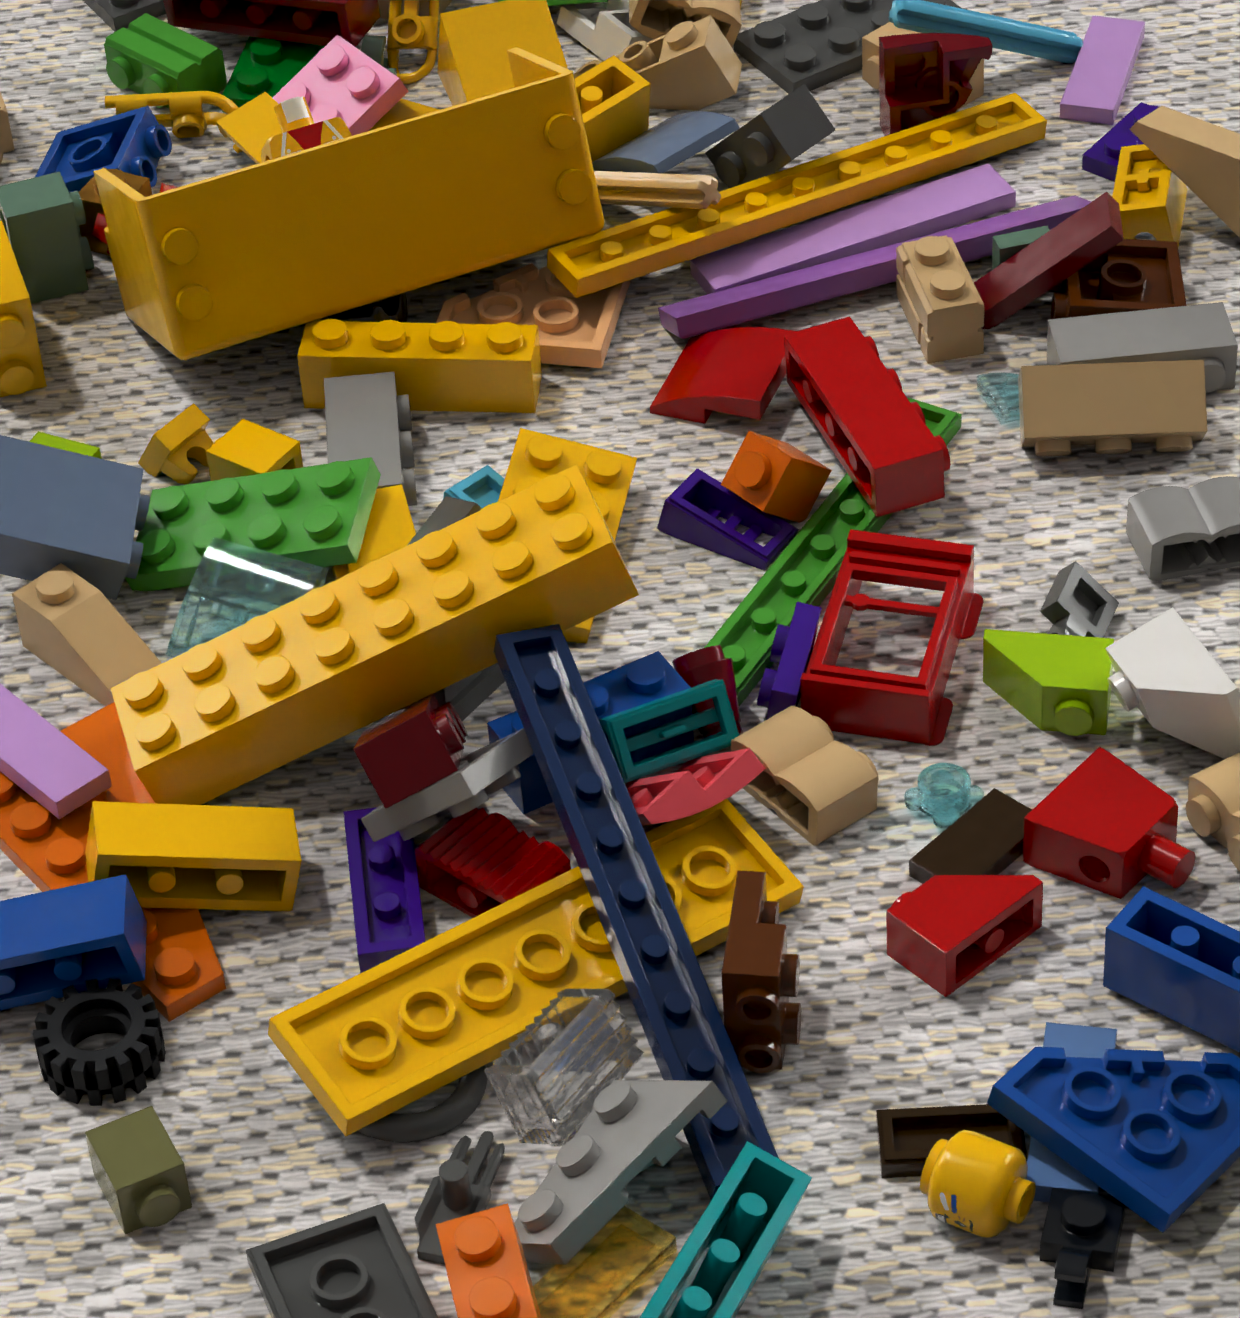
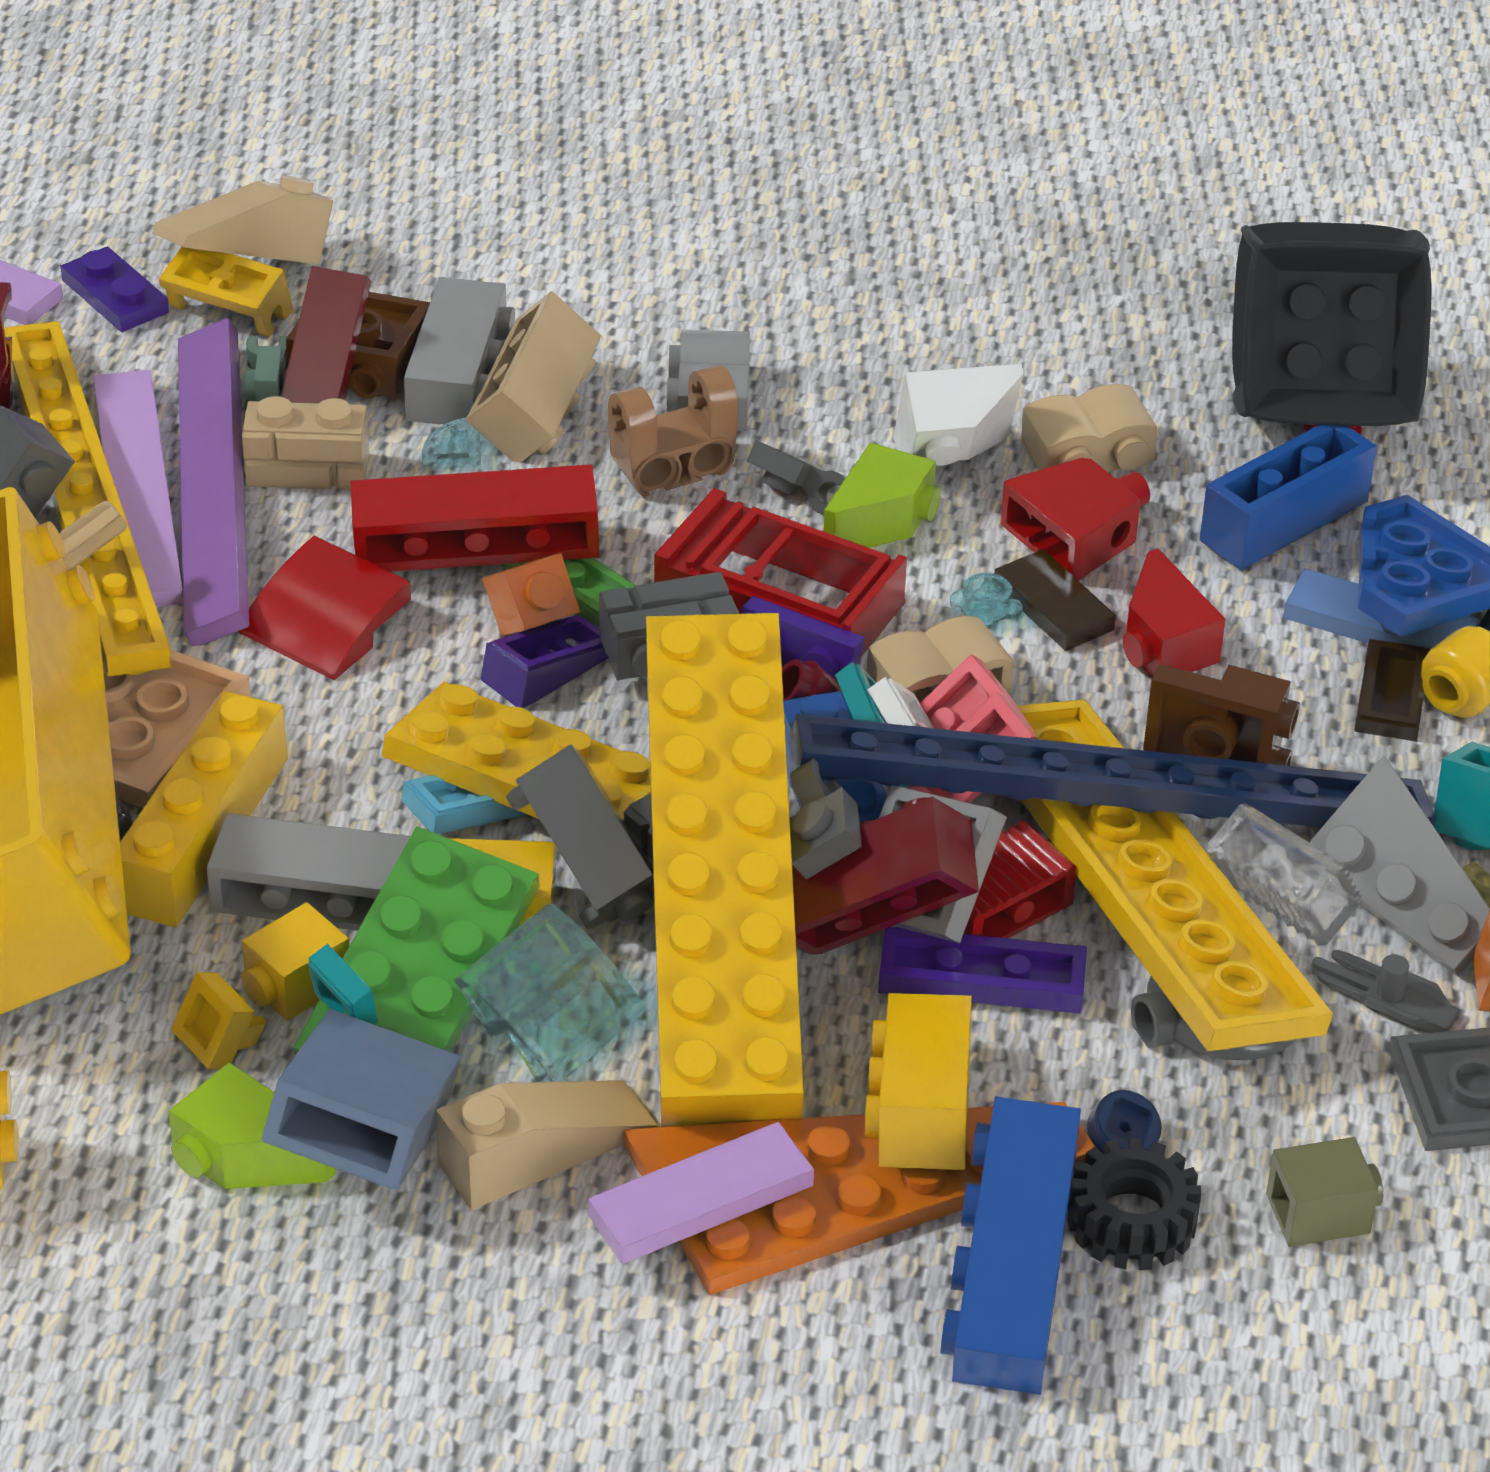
camera: 80 degrees left, 0 degrees up
(172, 473) = (340, 986): none -> teal tile
(202, 1021) = (1121, 1117): none -> dark blue tile
(425, 682) = (825, 825): none -> dark grey plate
(676, 737) = (898, 704): none -> white tile
(757, 566) = (625, 612): none -> dark grey brick
(1056, 515) = (678, 444): none -> medium nougat piece

